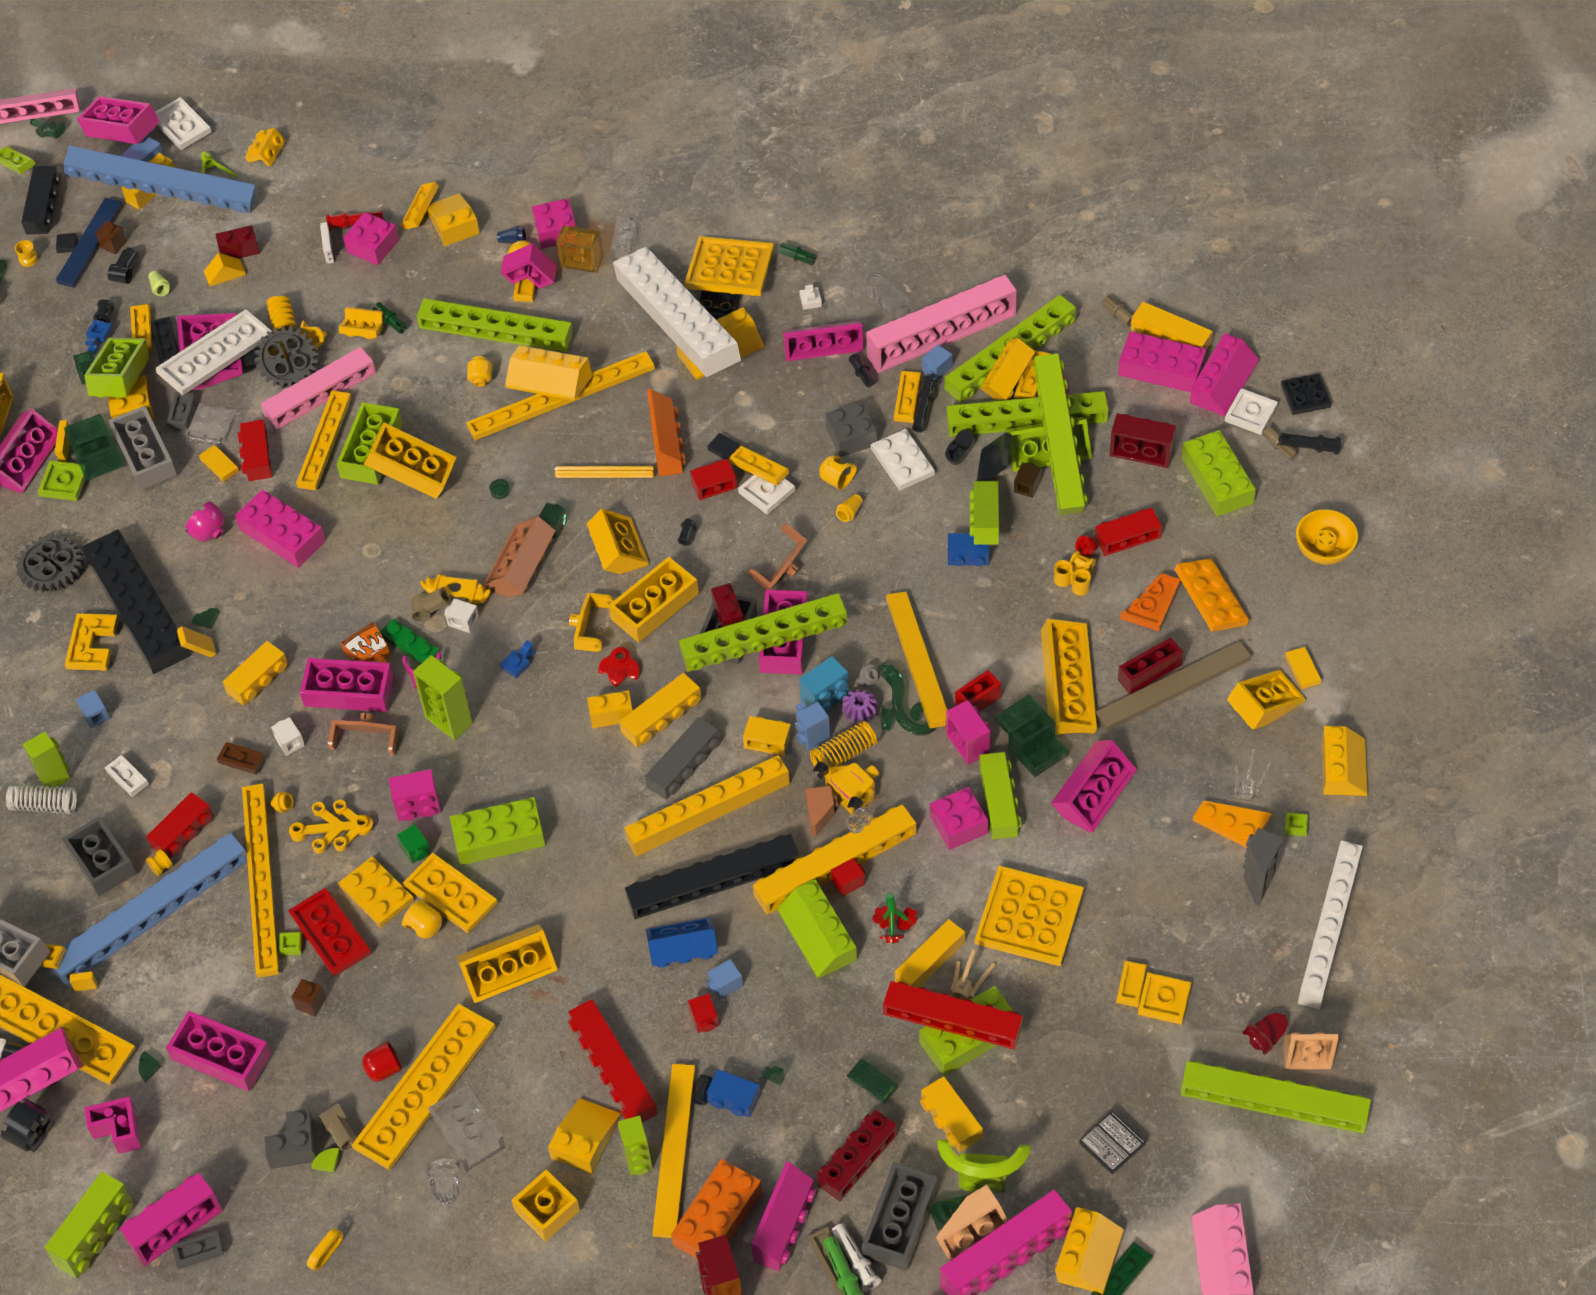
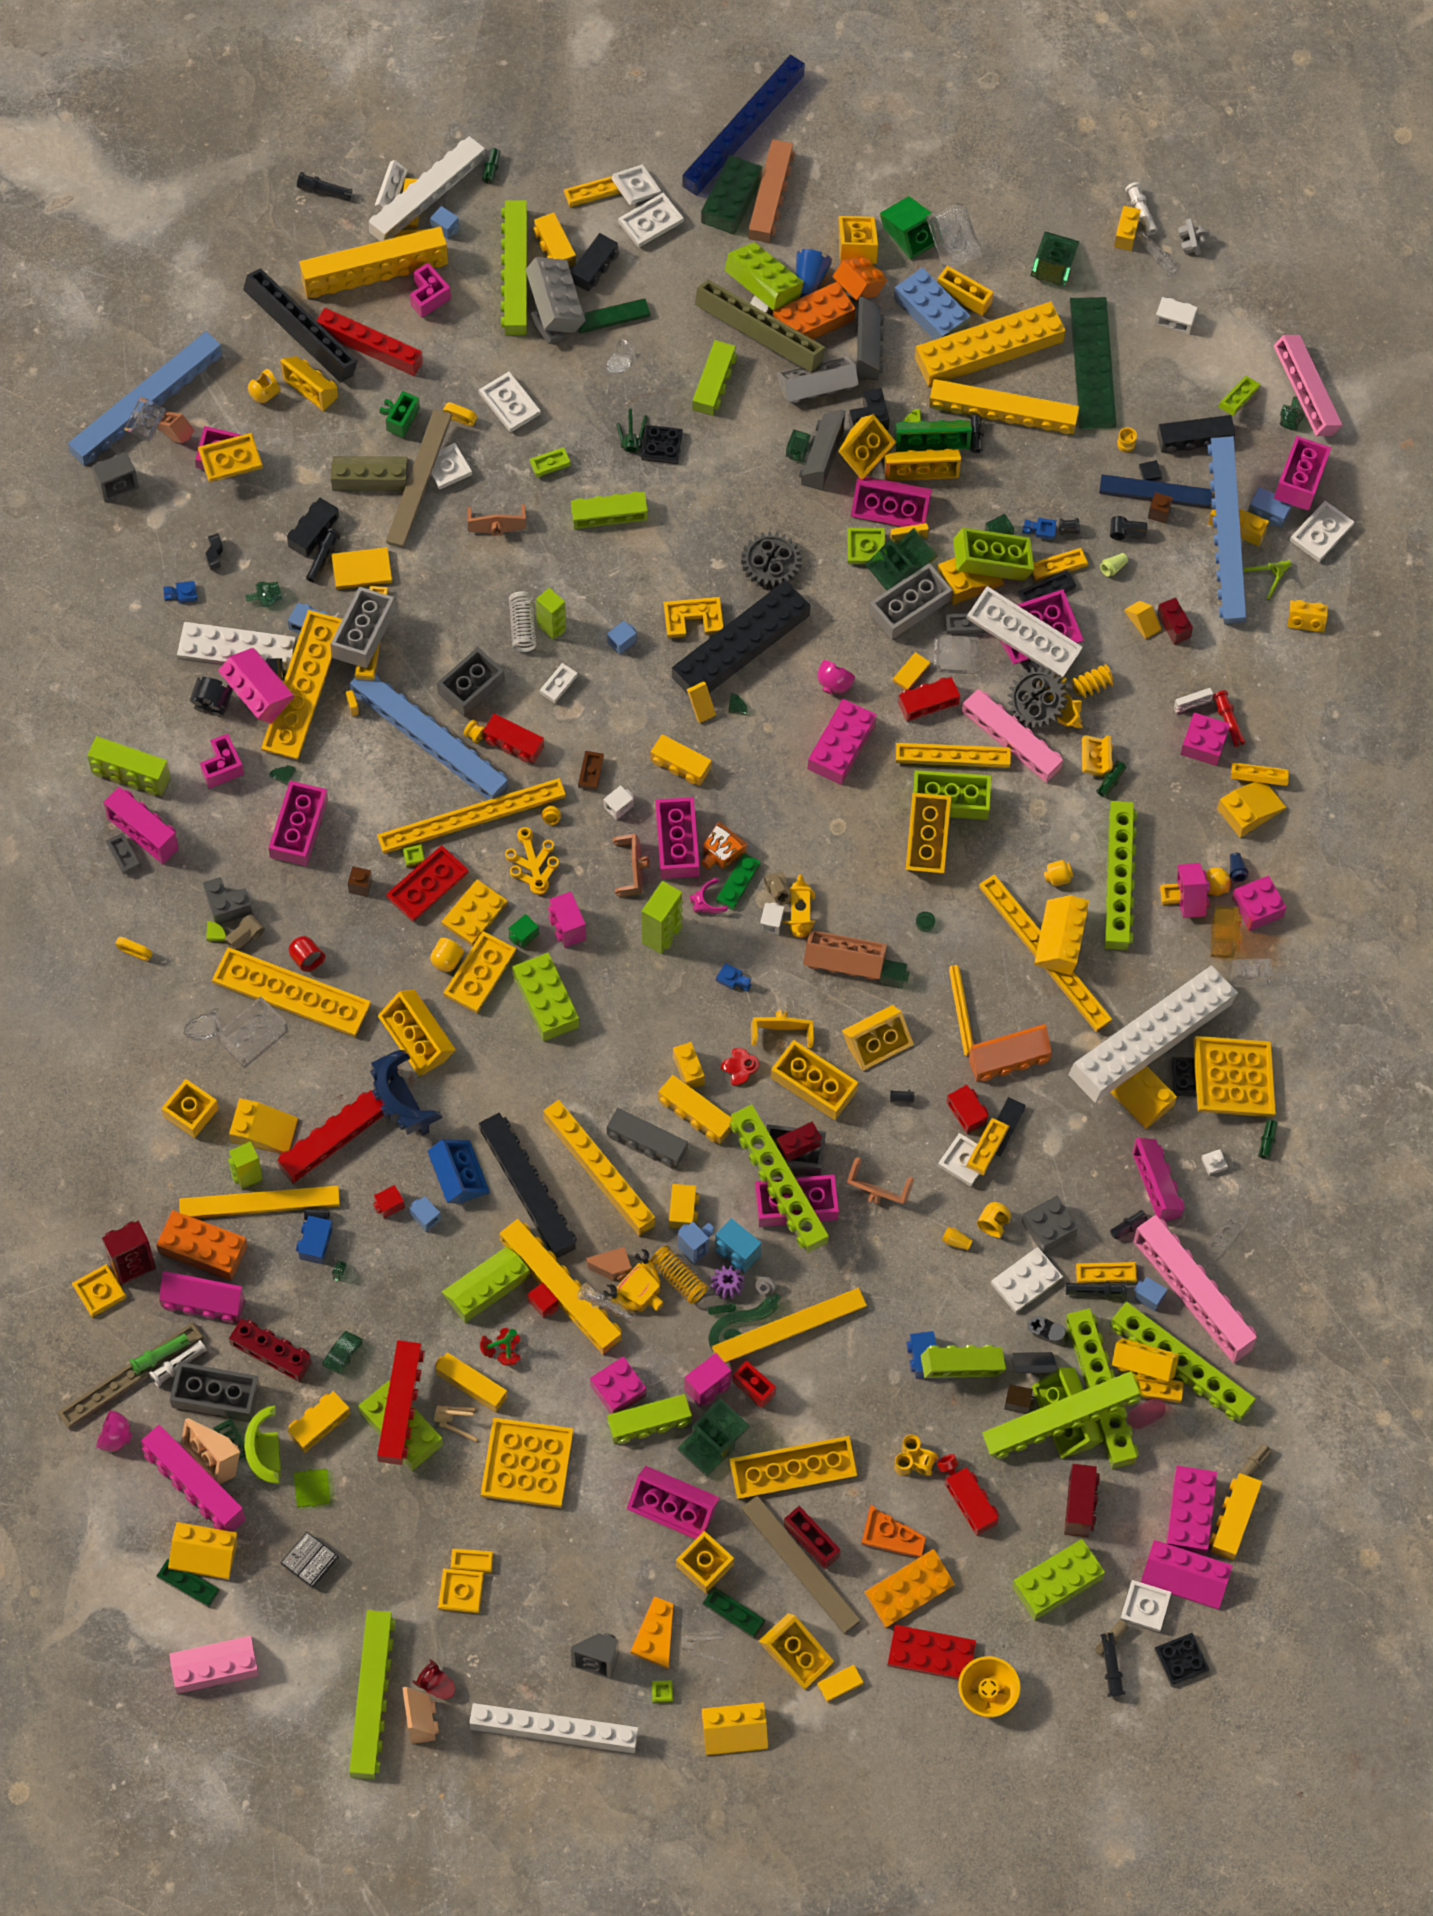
camera: 75 degrees right, 10 degrees up
(586, 985) = (396, 1097): none -> dark blue piece
(1025, 1131) = (312, 1488): none -> clear neon green piece
(1165, 762) = (705, 1562): none -> yellow brick
(1217, 750) = (733, 1612): none -> dark green tile
(1278, 588) = (930, 1652): none -> red plate

